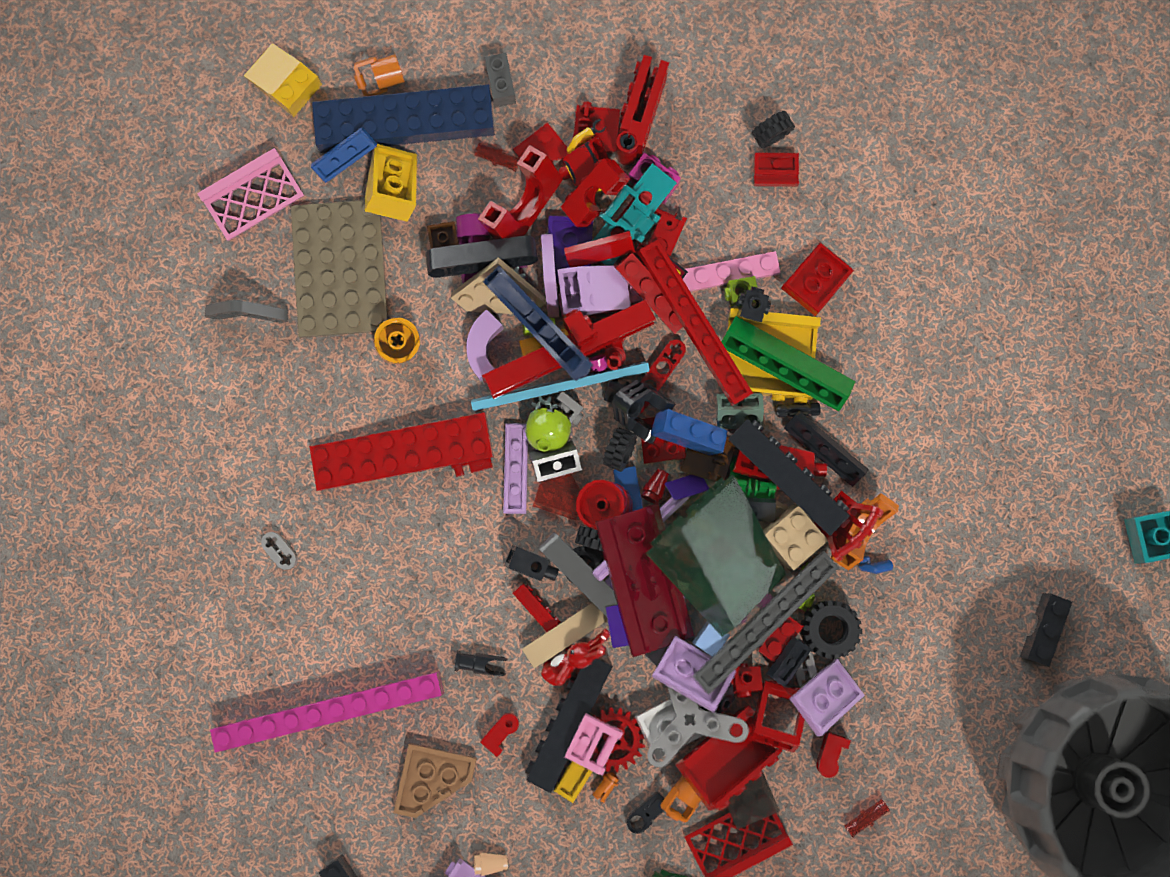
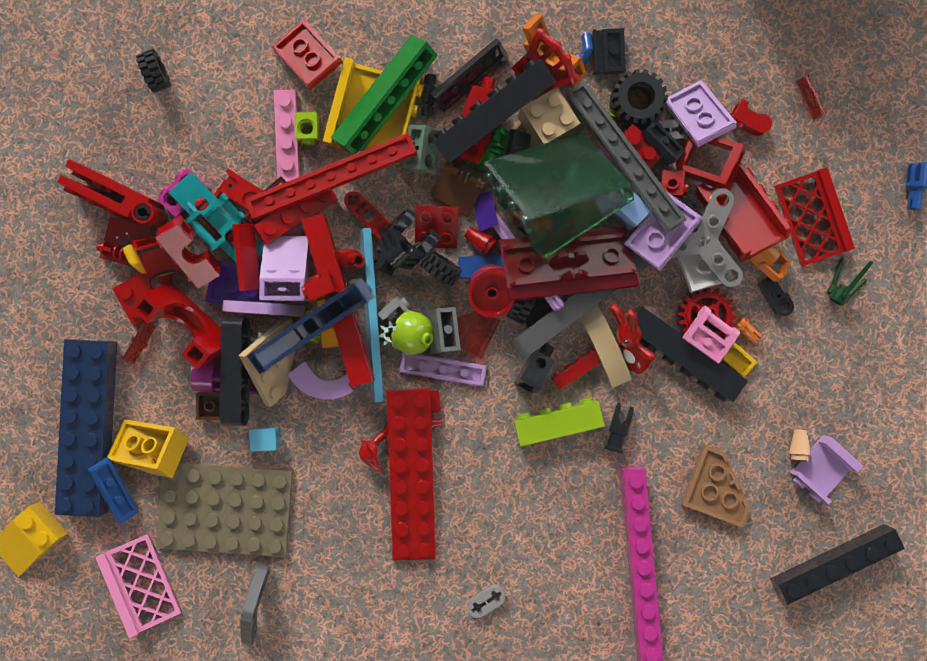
camera: 85 degrees left, 5 degrees up
(385, 70) = (35, 438): orange piece -> none
(393, 328) = (300, 452): light orange brick -> none
(417, 296) = (264, 439): none -> medium azure panel
(420, 404) = (368, 449): none -> red piece
(477, 597) = (558, 422): none -> lime brick
(500, 80) = (61, 327): dark grey brick -> none
(504, 726) = (684, 420): red leg -> none
(599, 363) = (355, 274): dark pink hinge -> none
(616, 627) = (615, 296): dark purple sticker -> none
(689, 432) = (436, 199): blue brick -> none
(745, 308) = (328, 122): black brick -> none
(753, 803) = (786, 195): clear smoke plate -> none
(776, 169) = (193, 75): red plate -> none
(877, 591) = (608, 51): none -> black plate

